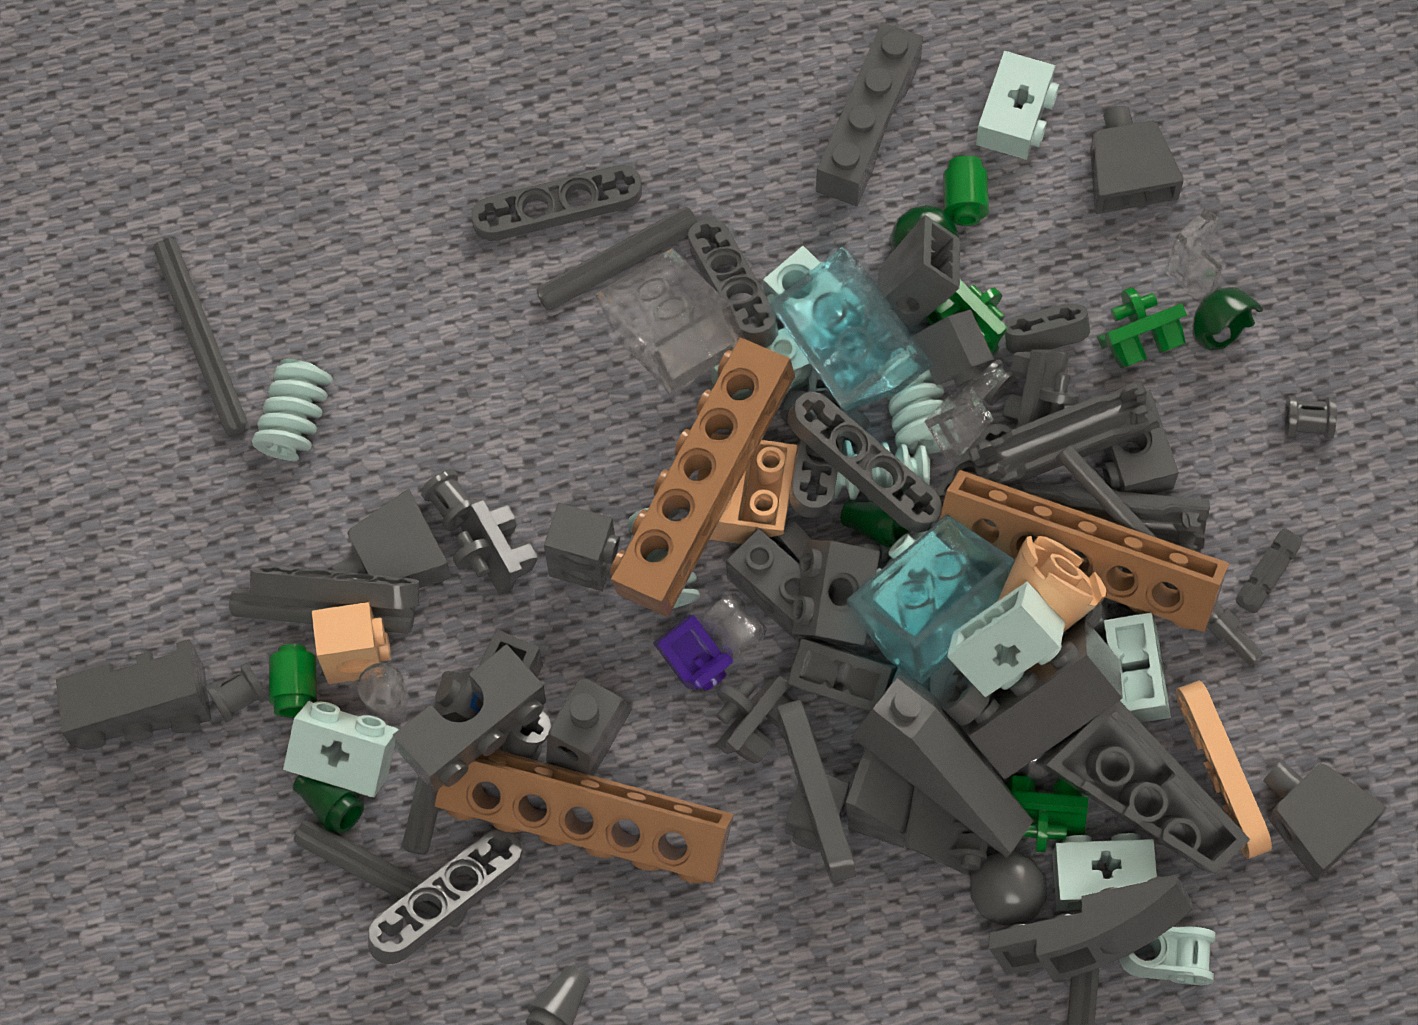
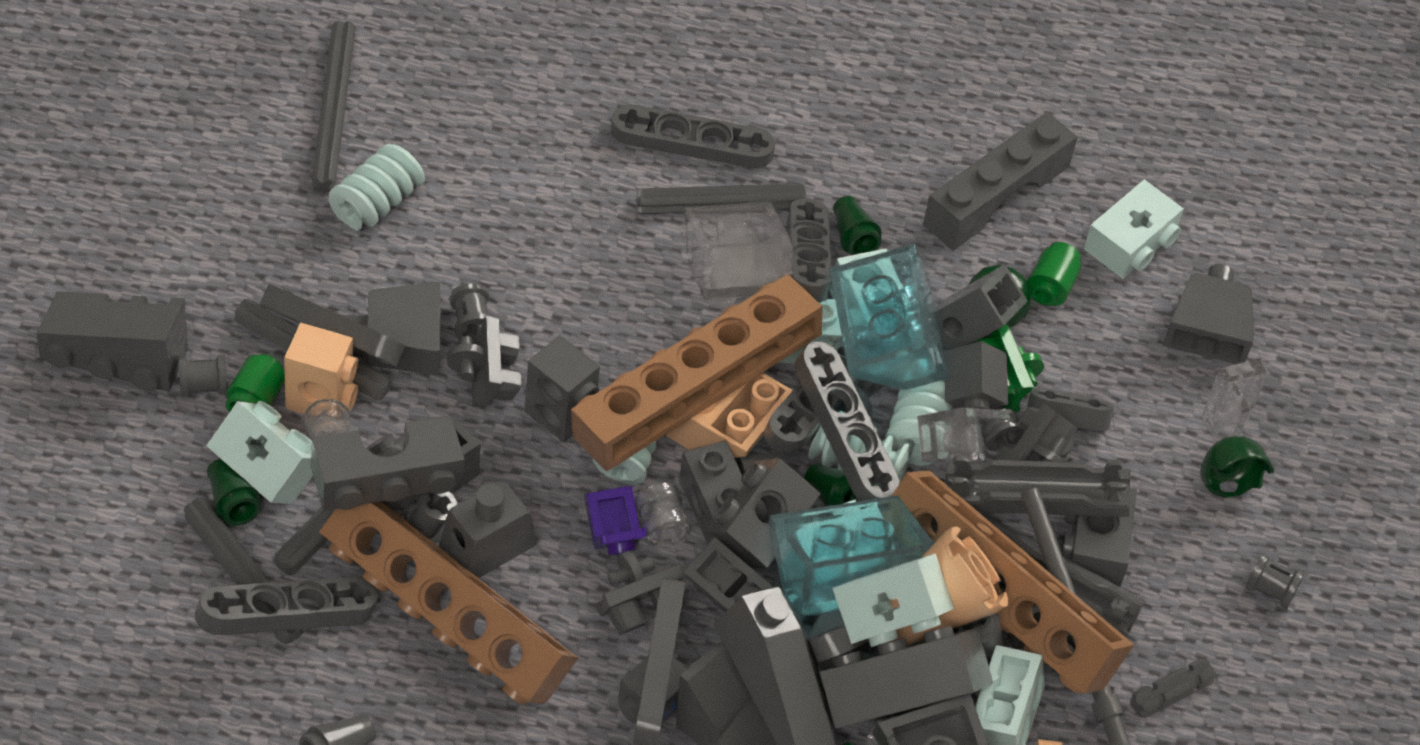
camera: 15 degrees right, 15 degrees down
(761, 231) = (855, 227): none -> dark green cone
(1163, 325) = (1175, 446): green hips -> none

